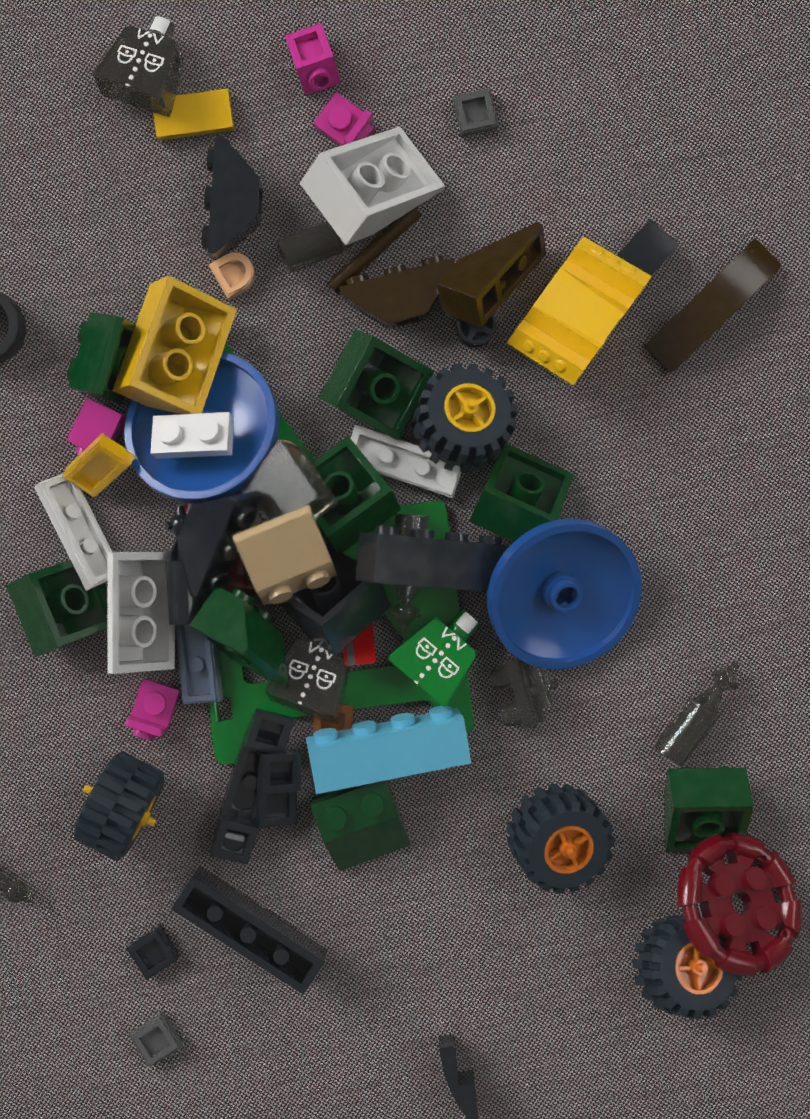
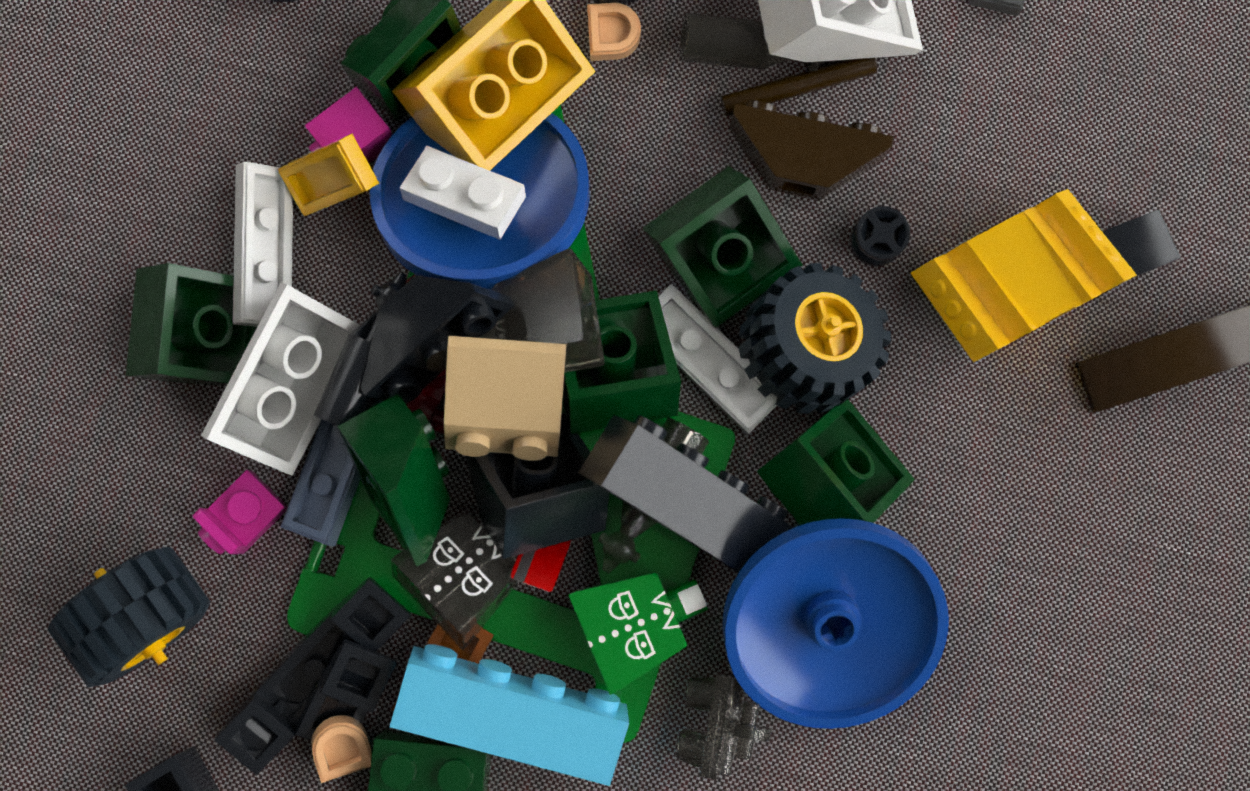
camera: 20 degrees right, 5 degrees down
(291, 822) = (340, 747): none -> light nougat tile
(489, 275) = (930, 179): dark brown slope -> none

